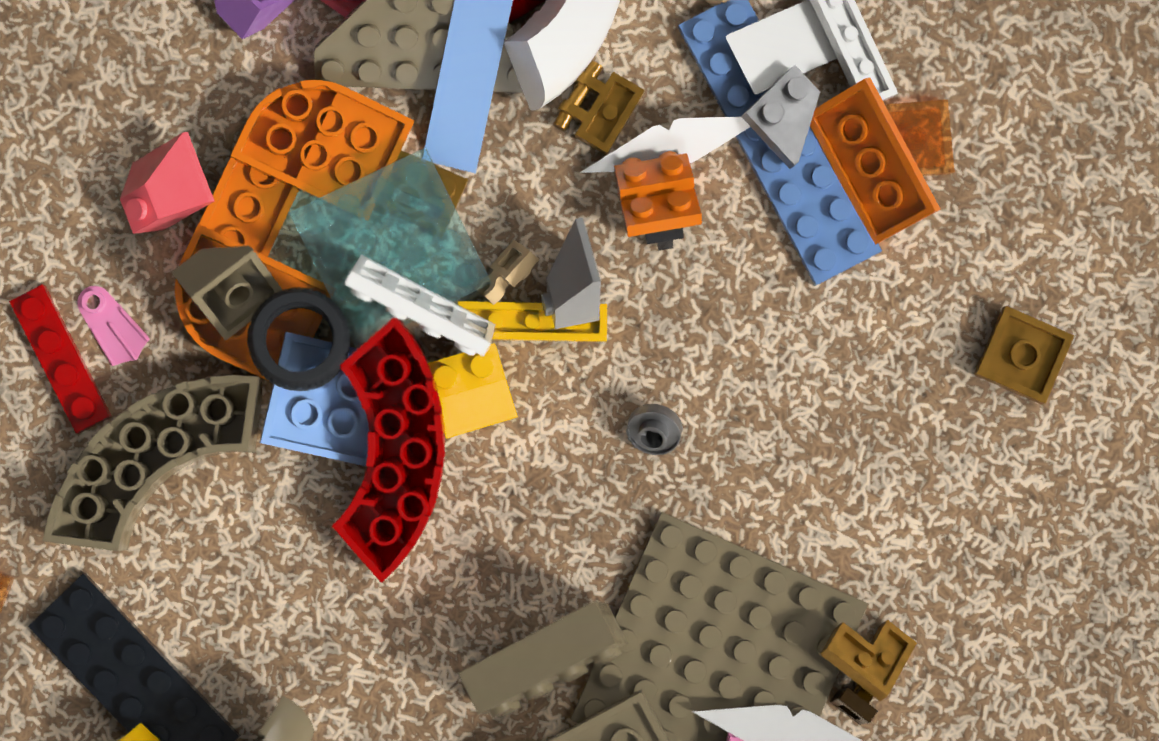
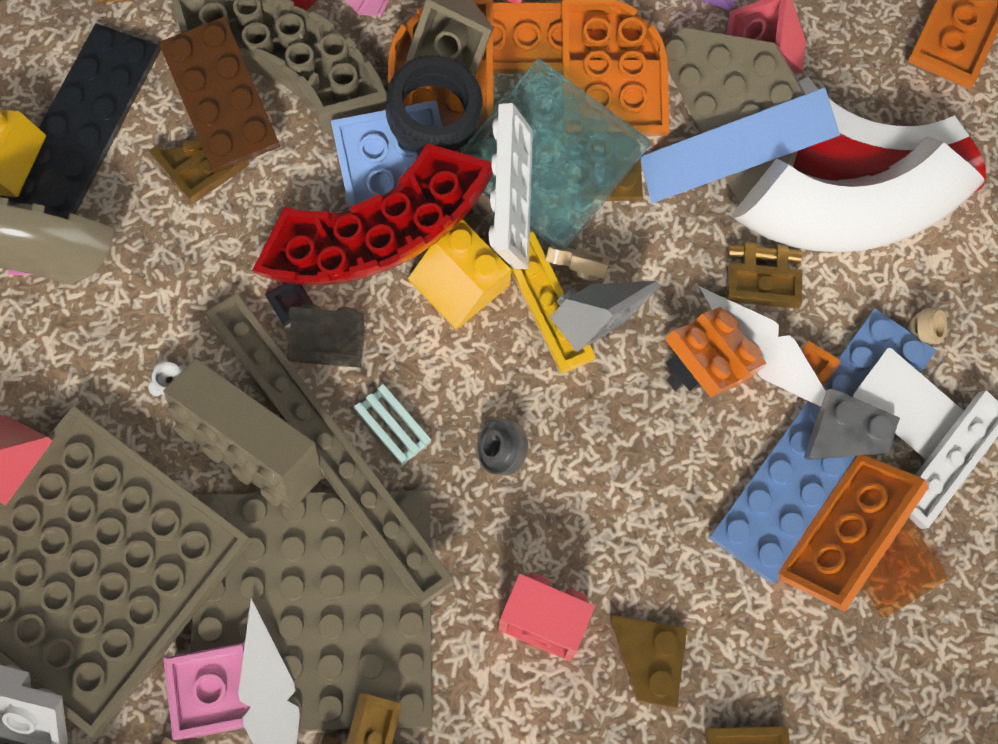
camera: 65 degrees right, 15 degrees down
(179, 538) = (219, 94): none -> reddish brown plate
(237, 585) = (191, 170): none -> pearl gold wing
(422, 560) = (287, 296): none -> black tile
(446, 713) = (163, 371): none -> white plate
(475, 541) = (326, 336): none -> clear smoke bracket
(581, 586) = (337, 457): none -> dark tan plate
(614, 508) = (373, 400): none -> light aqua tile
(707, 105) = (821, 361): none -> orange plate
(827, 465) = (546, 616): none -> coral brick
(895, 389) = (652, 658): none -> pearl gold wing

